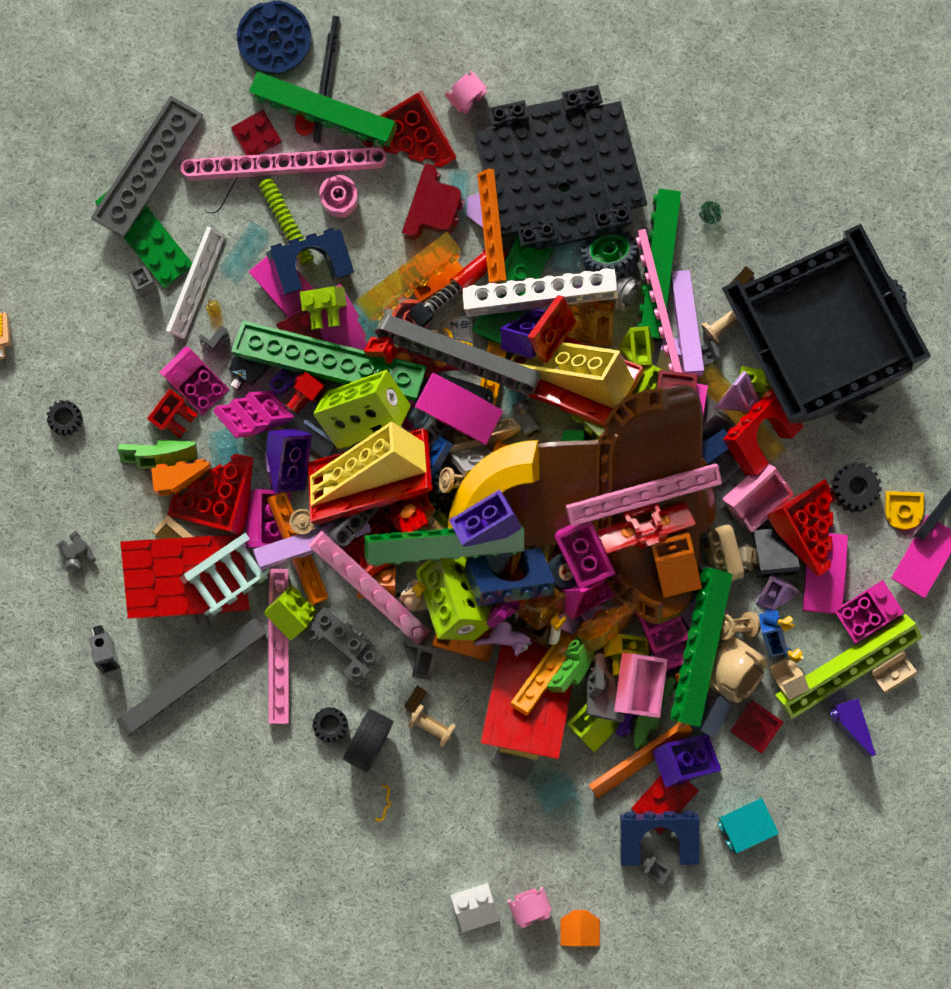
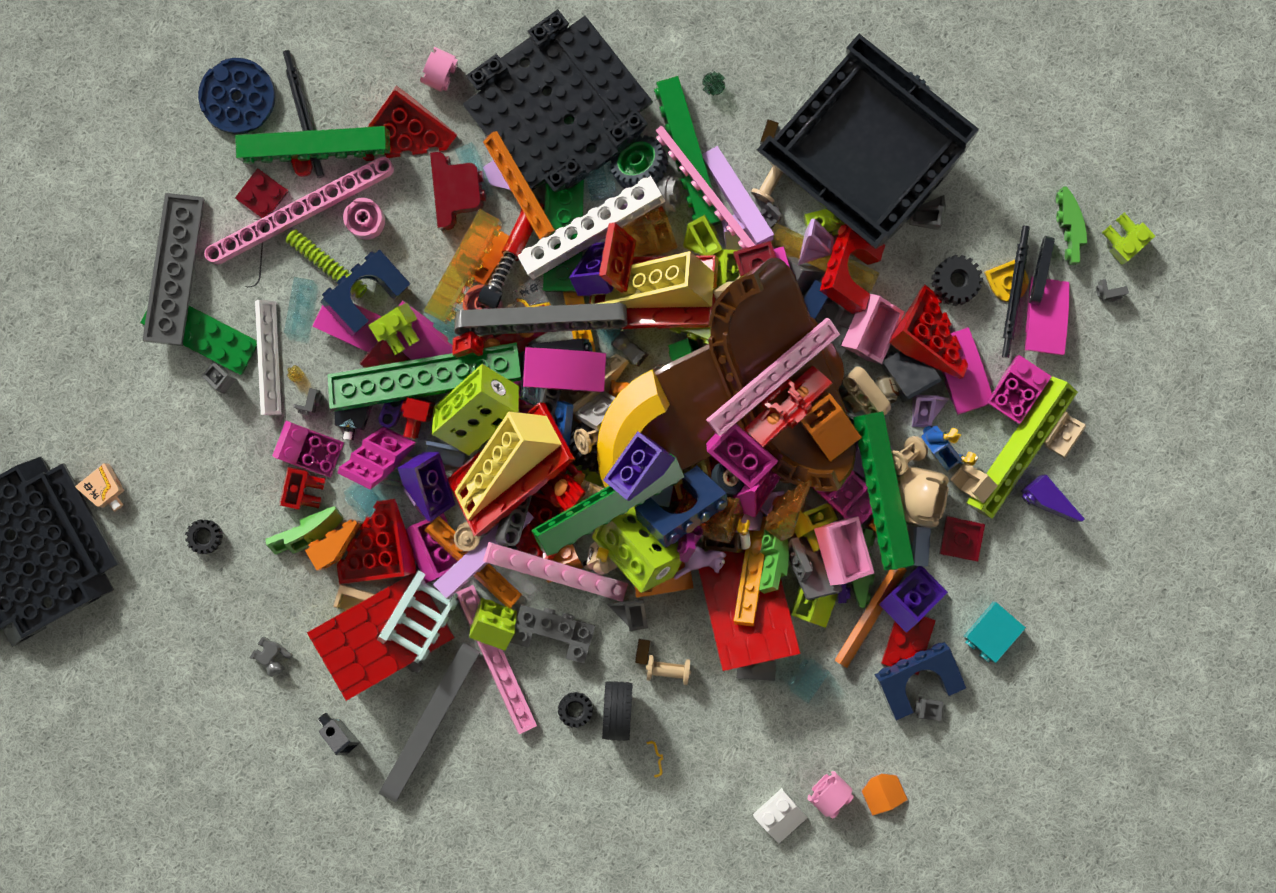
camera: 20 degrees left, 5 degrees up
(906, 520) = (1015, 293): none -> black axle

